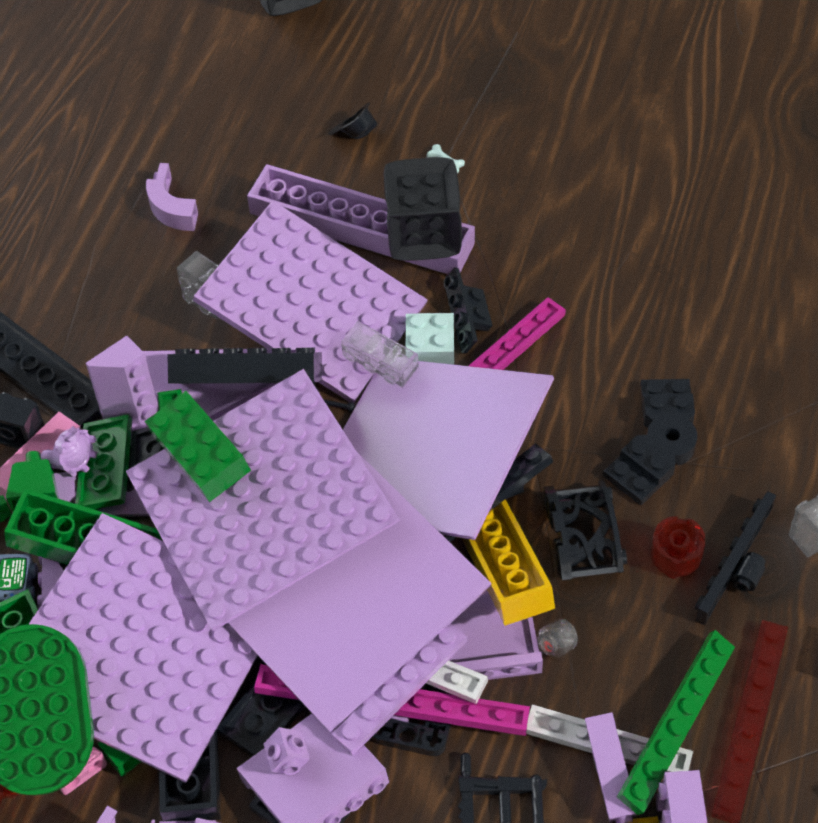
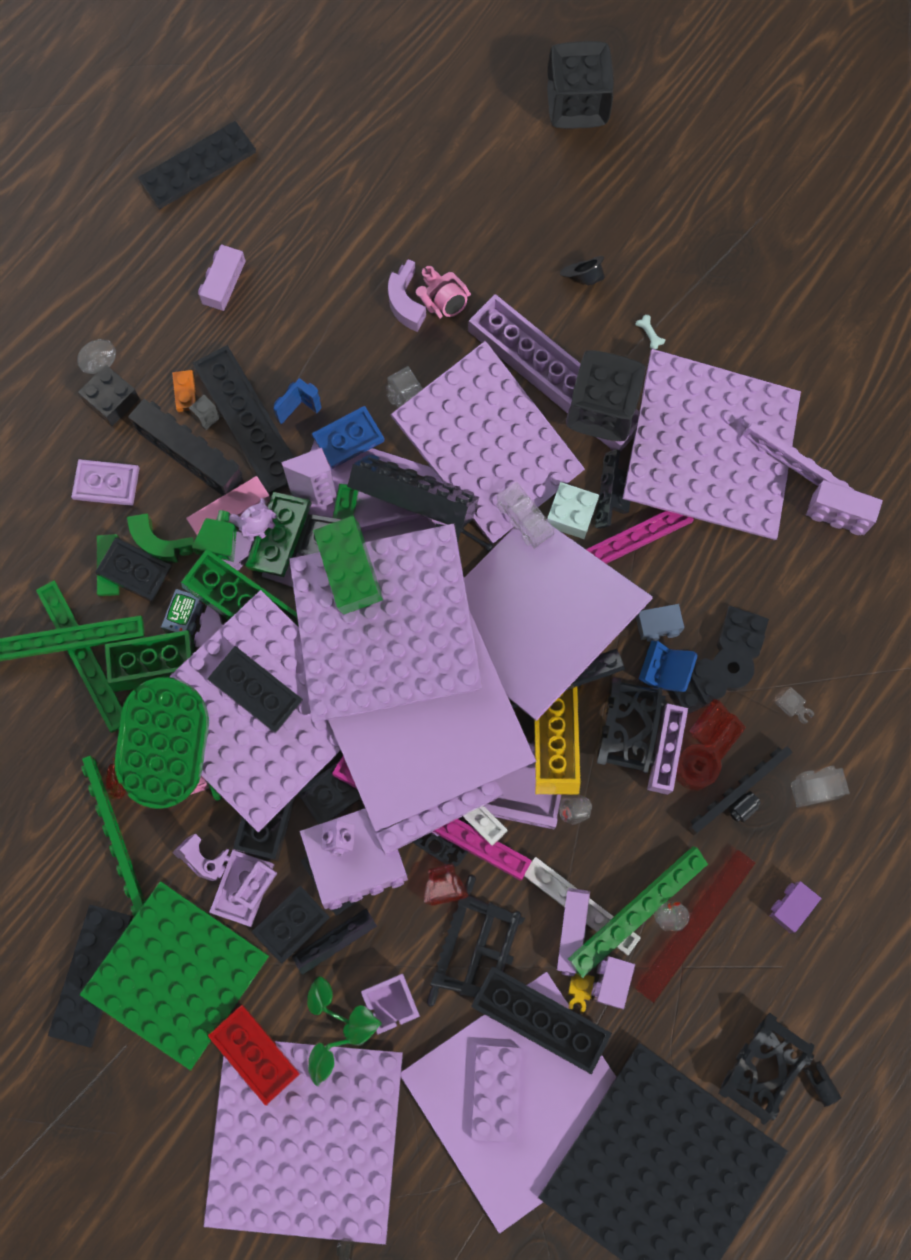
camera: 15 degrees right, 20 degrees up
(82, 318) = (297, 393): none -> blue bracket
(130, 616) = (255, 689): none -> black plate
(160, 337) = (348, 437): none -> blue plate
(216, 181) = (449, 296): none -> bright pink piece
(436, 778) = (444, 889): none -> clear red piece
(555, 236) = (692, 447): none -> lavender baseplate
(571, 418) = (660, 622): none -> sand blue brick
(600, 459) = (667, 667): none -> blue bracket
(636, 539) = (667, 749): none -> lavender brick
(652, 222) = (789, 456): none -> lavender plate
(682, 499) = (717, 728): none -> clear red slope
(719, 714) = (672, 916): none -> clear head
(720, 248) = (844, 508): none -> lavender brick
(754, 453) = (793, 703): none -> clear plate

